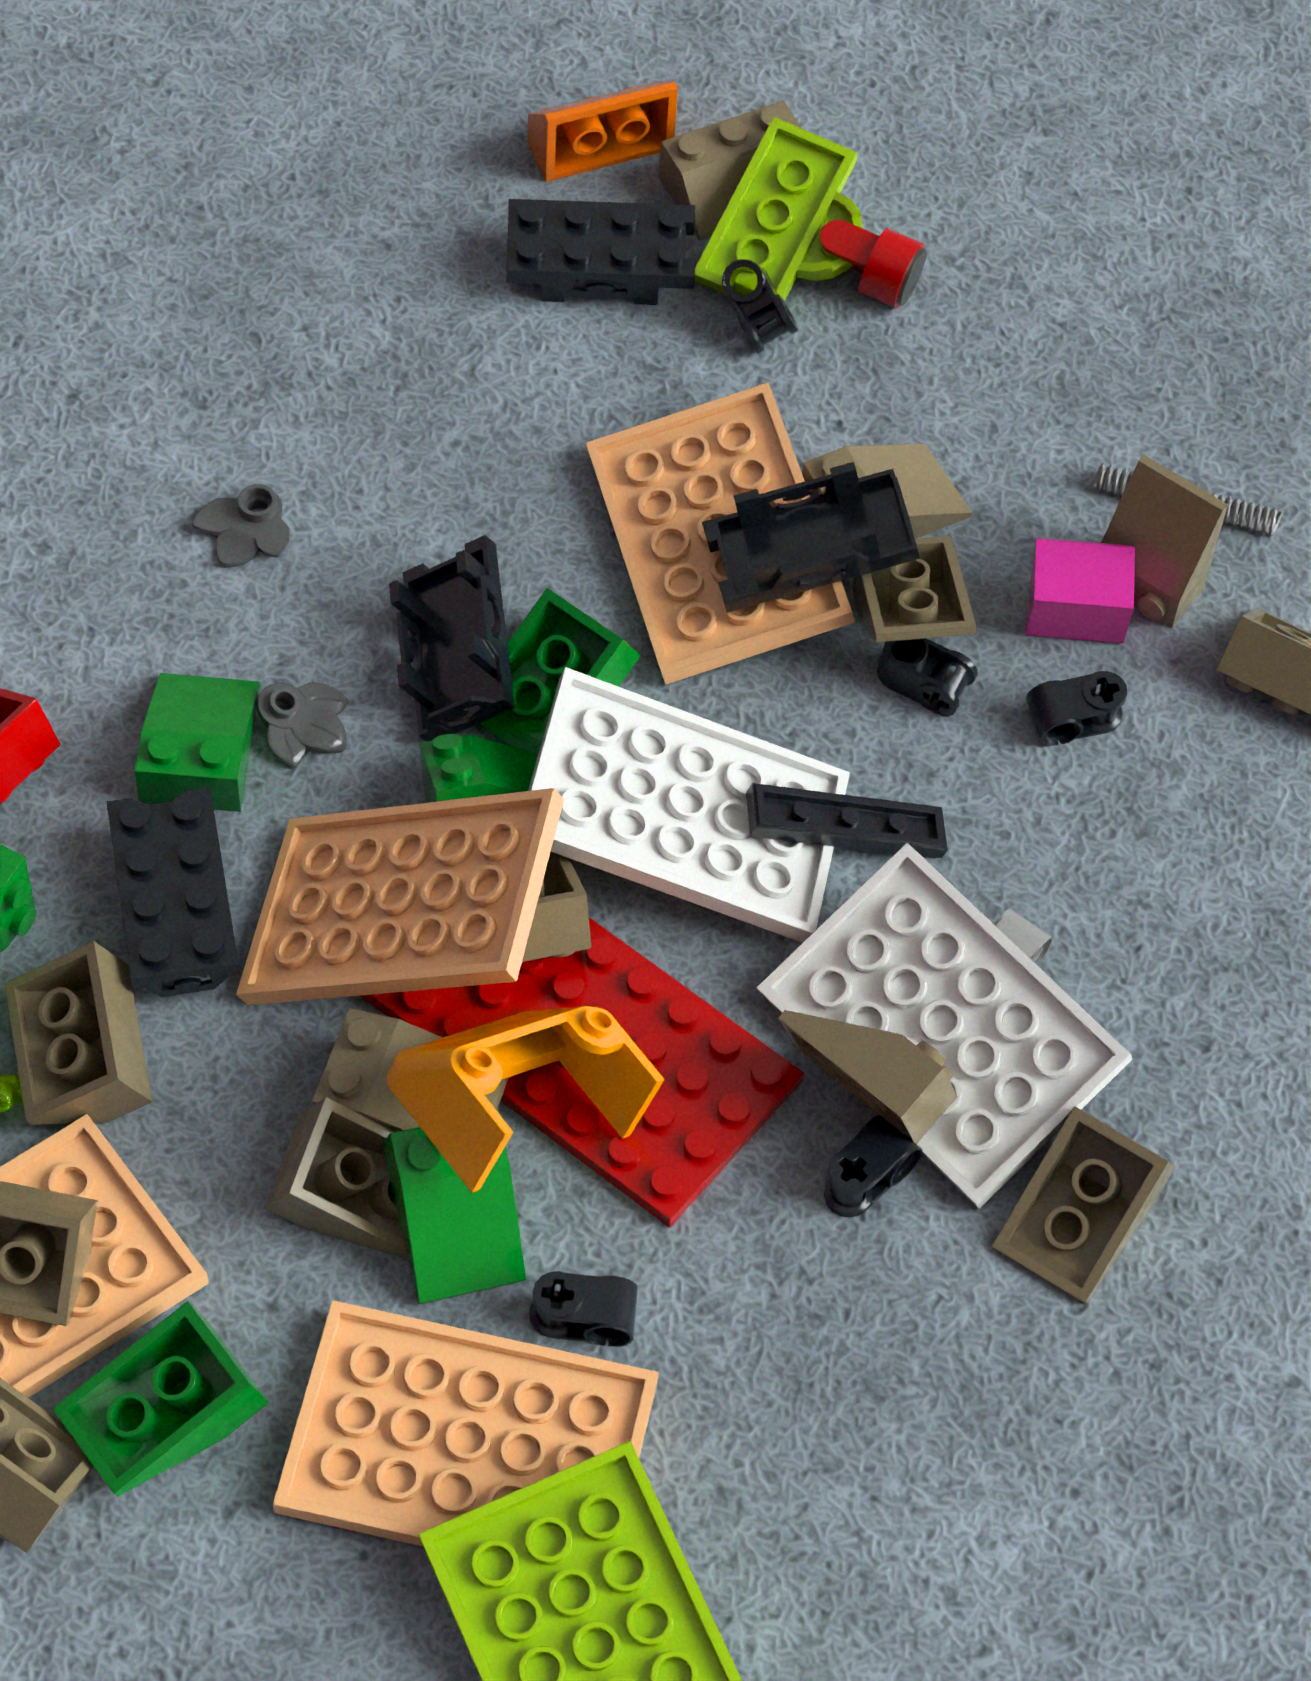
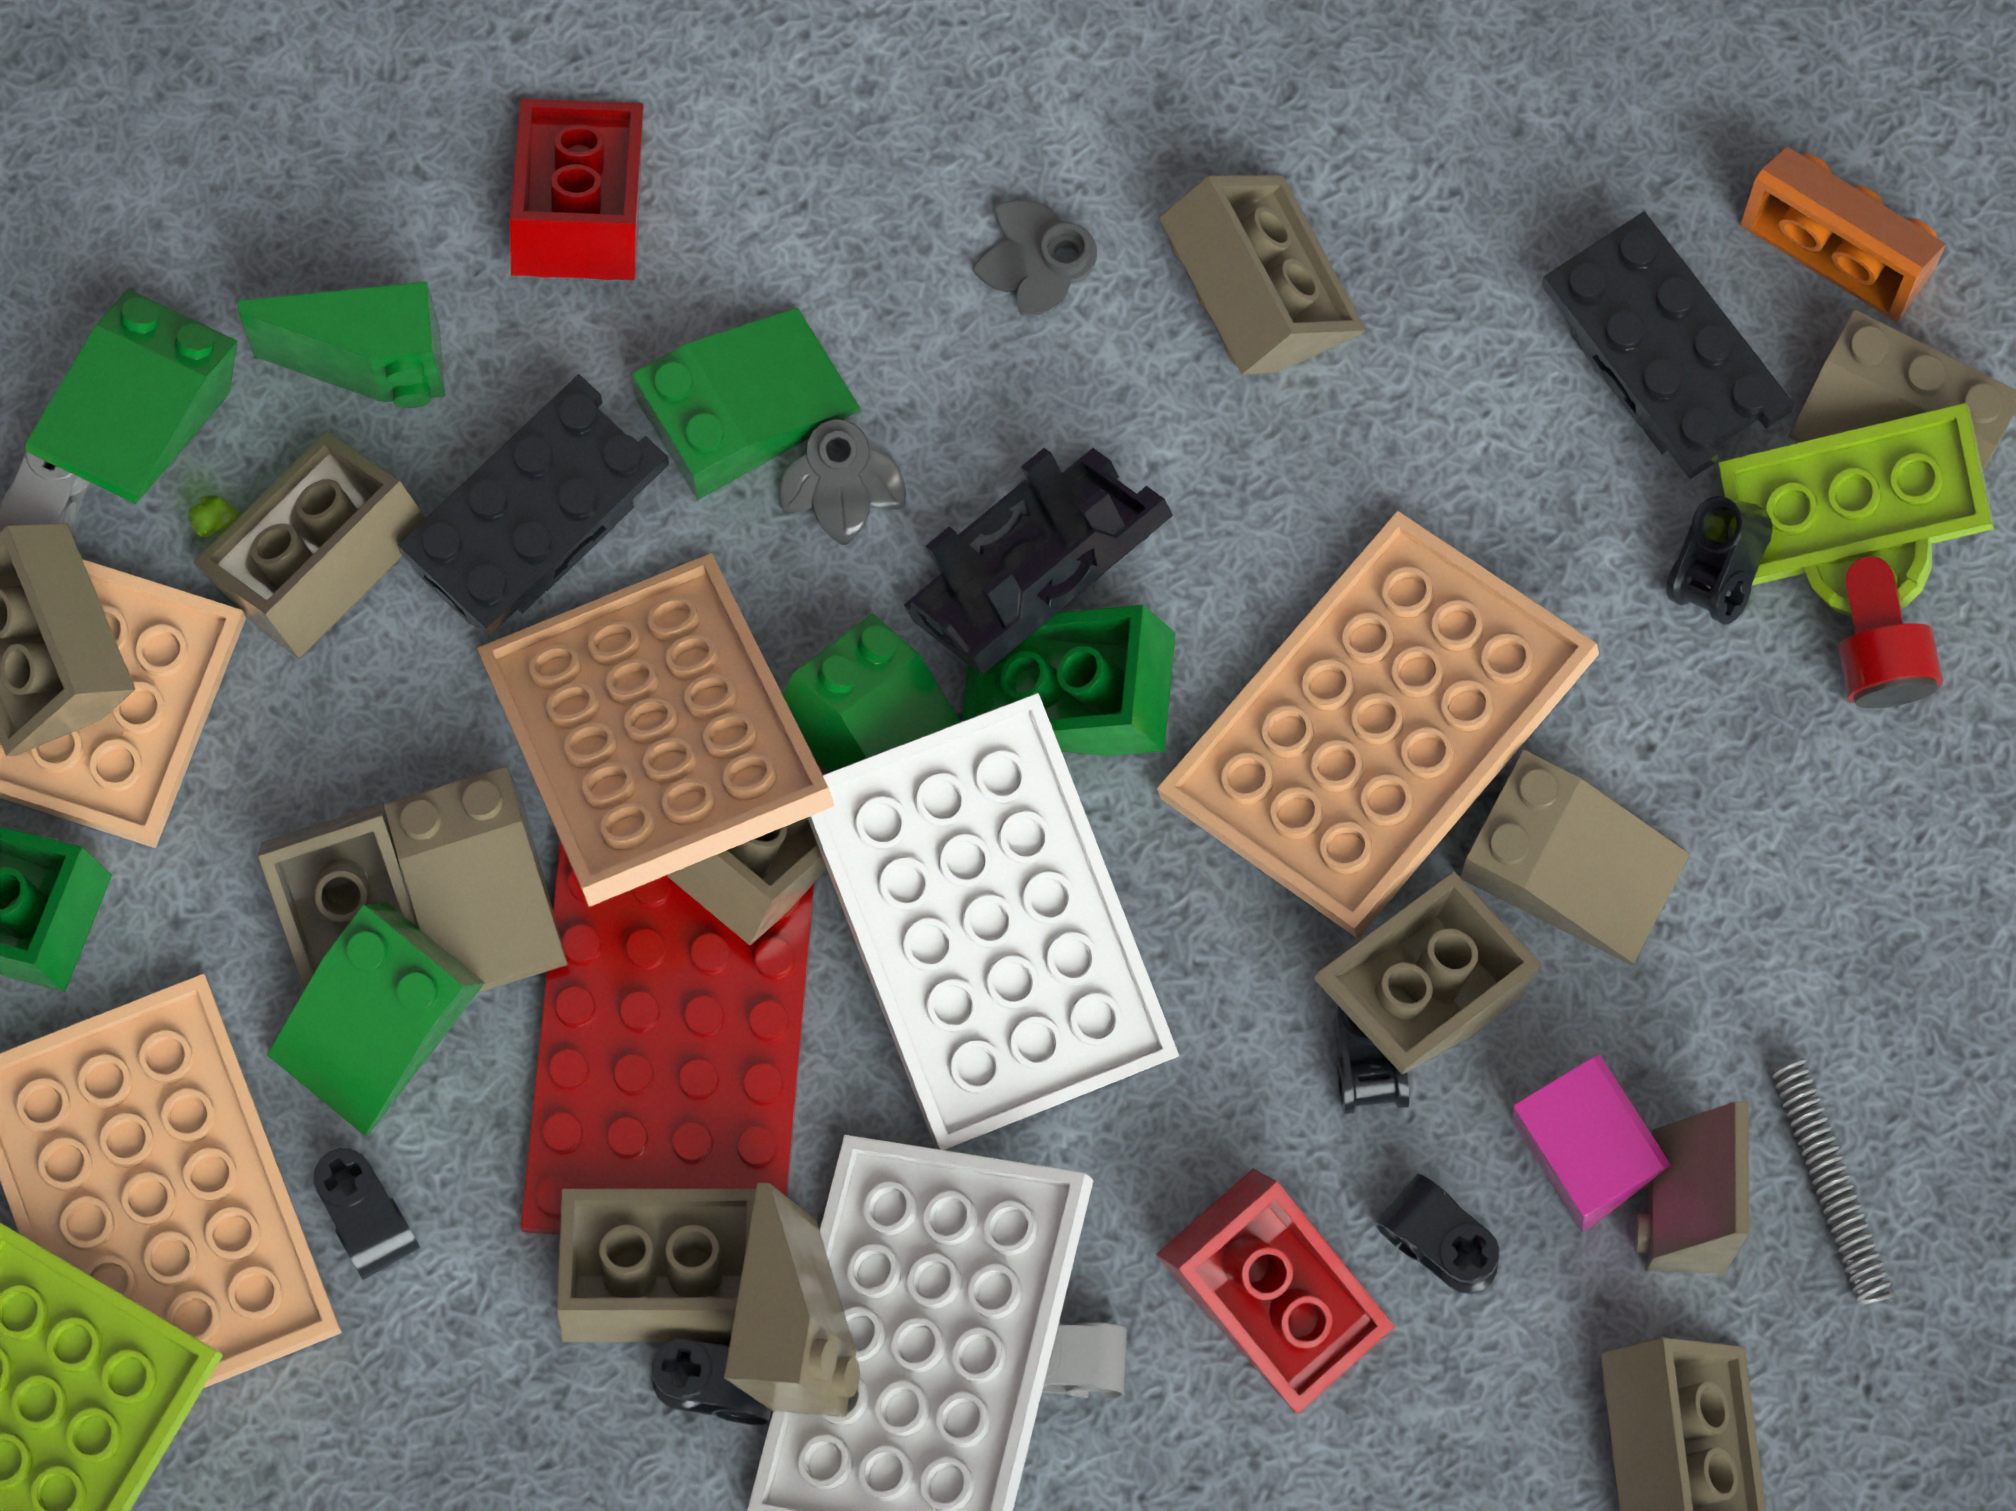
camera: 60 degrees right, 15 degrees up
(365, 419) = (1260, 272): none -> dark tan slope
(448, 1079) = (455, 904): light orange windscreen -> none
(769, 1142) = (651, 1263): none -> dark tan slope
(811, 542) = (1407, 826): black piece -> none
(844, 820) = (1106, 1093): black tile -> none
(1040, 814) = (1275, 1289): none -> red slope

